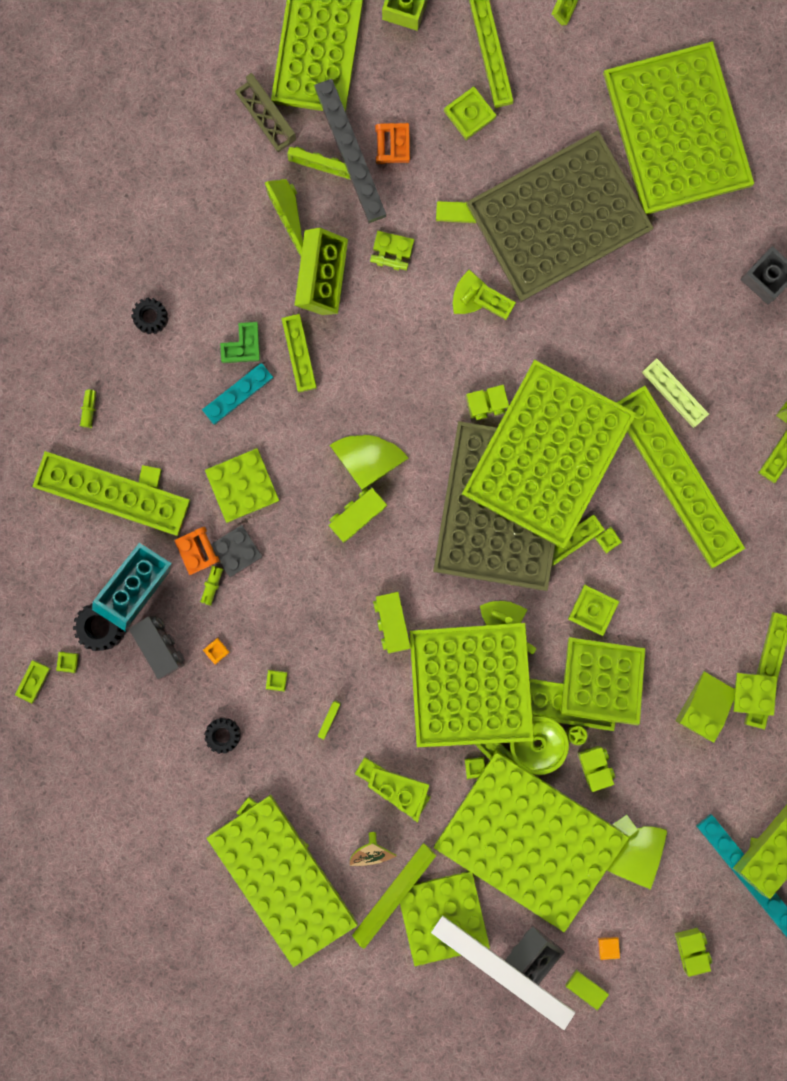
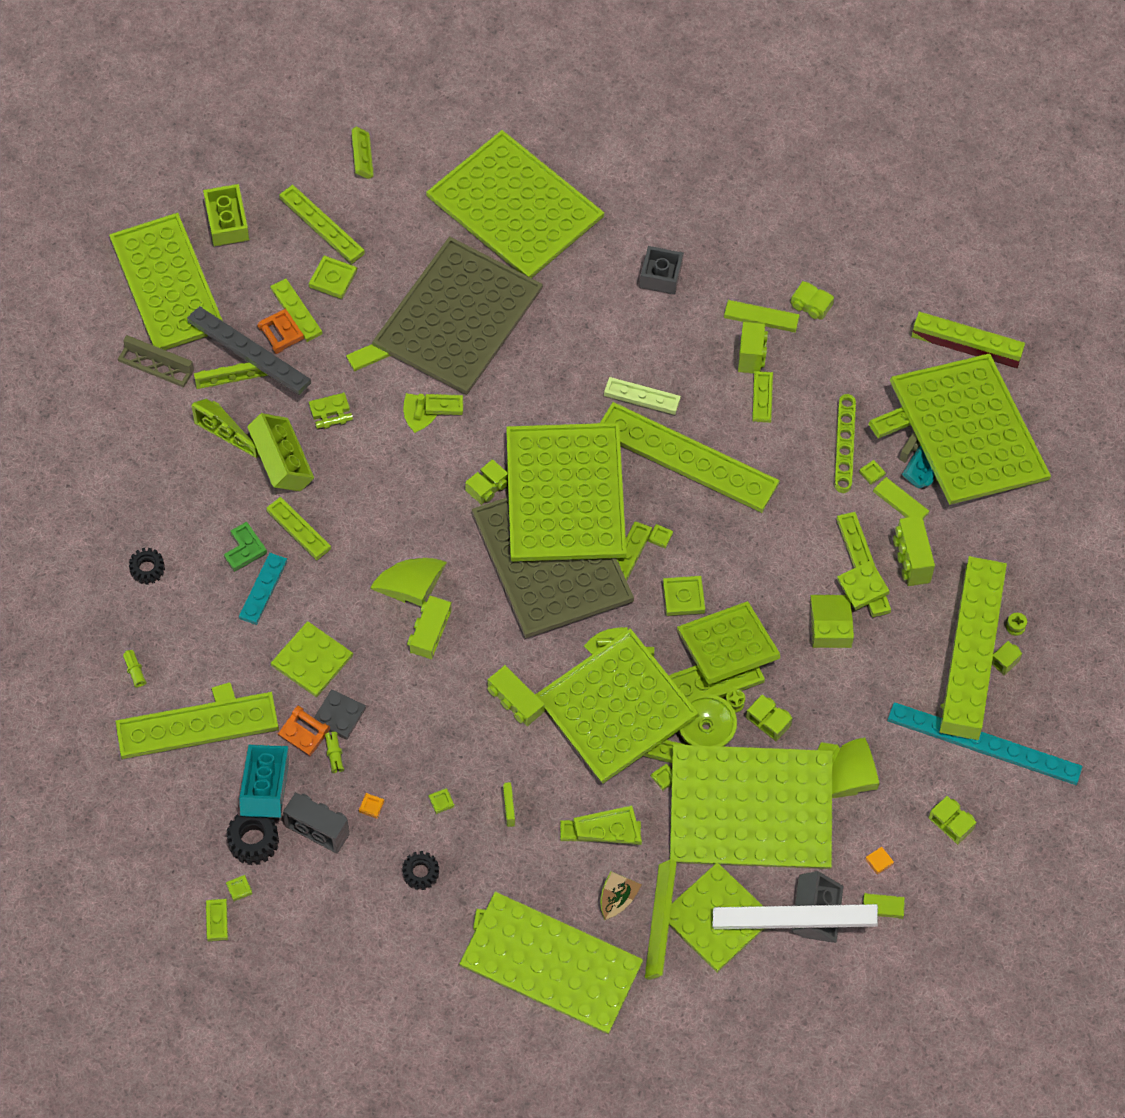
camera: 30 degrees left, 25 degrees down
(419, 129) = (290, 300): none -> lime plate

